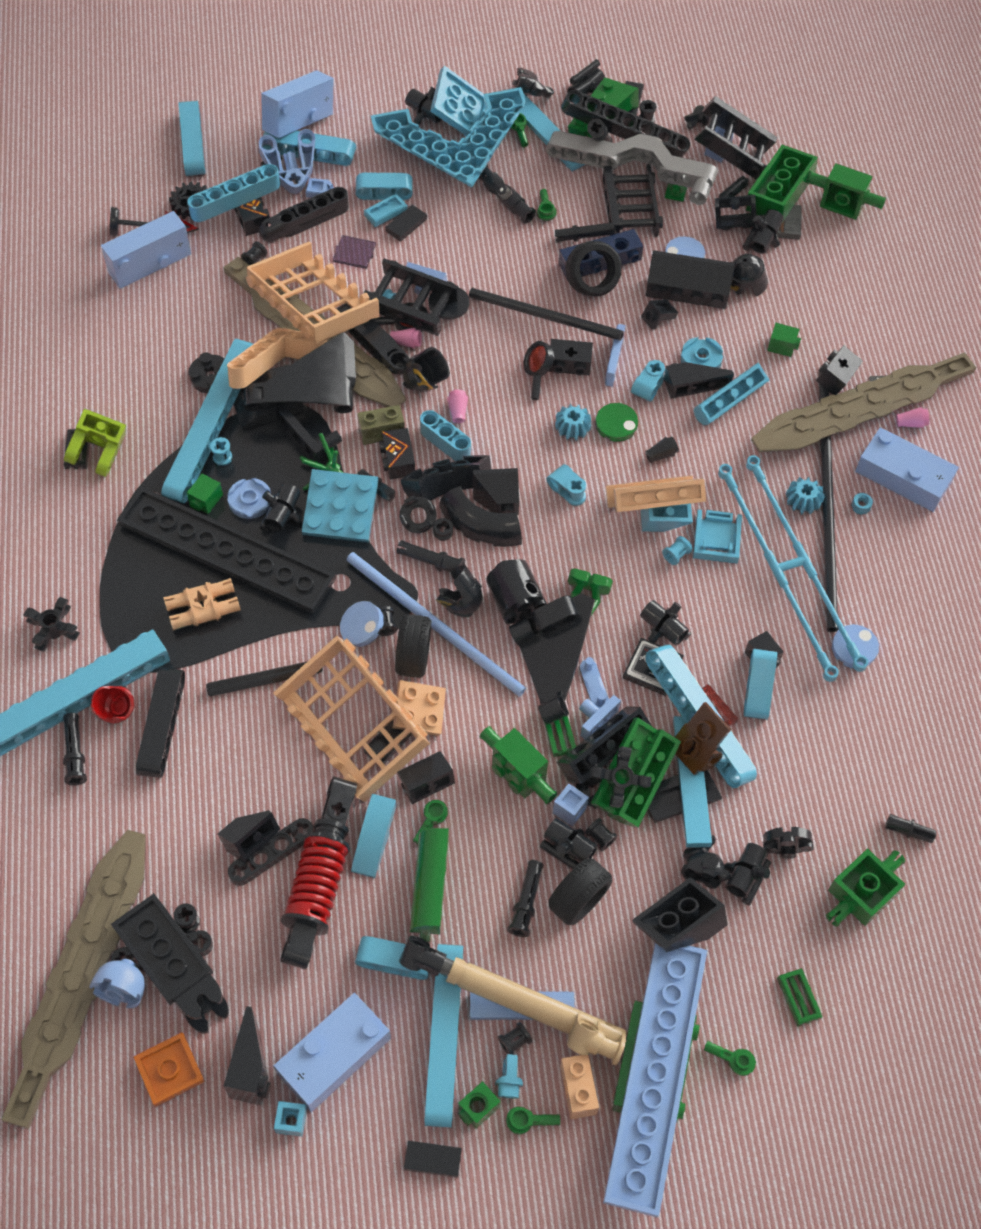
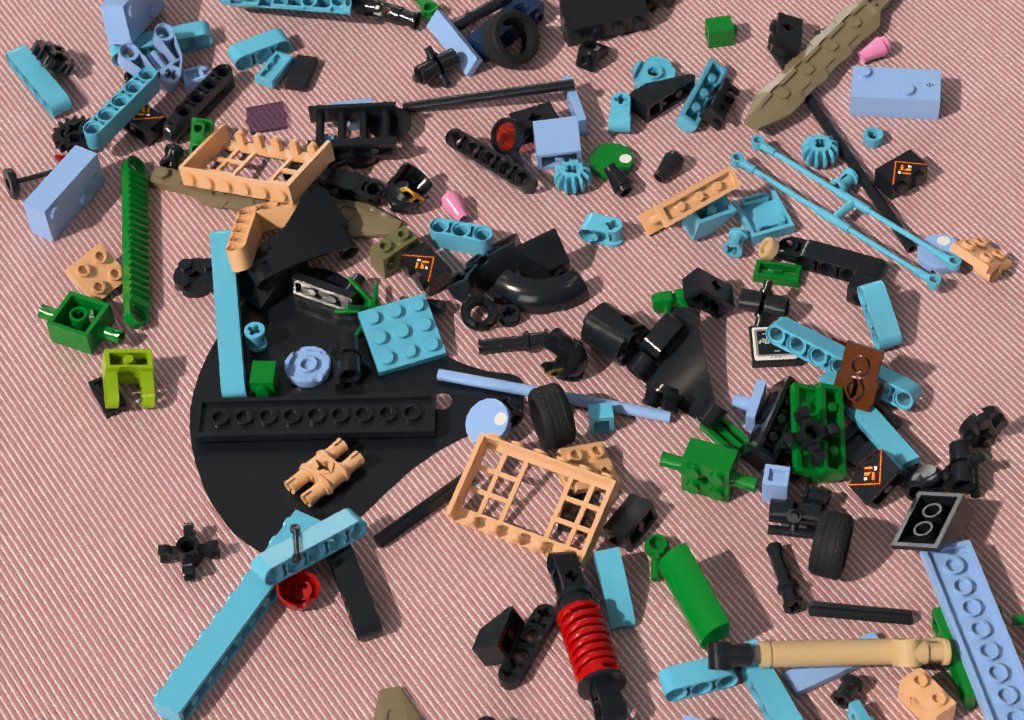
camera: 20 degrees left, 10 degrees down
(74, 758) = (294, 660): black pin -> none
(91, 373) = (81, 322): none -> green brick
(130, 335) = (96, 273): none -> light nougat plate
(132, 651) = (295, 529): none -> black hinge
(137, 671) = (314, 544): none -> medium azure beam
(178, 319) = (135, 242): none -> green gear
(211, 121) = (52, 57): none -> black gear
(286, 240) = (200, 130): none -> green hips
(408, 337) = (370, 168): bright pink cone -> none
(460, 664) = (601, 418): none -> medium azure plate
(506, 367) = (497, 167): none -> black beam
(518, 266) = (436, 66): none -> black pin
(525, 669) = (670, 396): none -> black piece
(548, 250) = (450, 37): none -> light blue tile
(574, 967) = (860, 612): none -> black axle
(575, 384) = (556, 141): none -> light blue slope
(593, 682) = (727, 381): light blue piece -> none
(609, 444) = (620, 182): none -> black cone
(620, 590) = (708, 293): none -> black brick
(663, 846) = (878, 478): none -> black brick
(696, 600) = (778, 274): none -> green tile
(702, 570) = (768, 248): none -> tan tile
(741, 410) = (718, 104): none -> black hinge
(751, 607) = (829, 259): none -> black piece
(810, 535) = (845, 181): none -> medium azure bush
(864, 552) = (901, 174): none -> black brick
(889, 668) = (984, 259): none -> light nougat plate

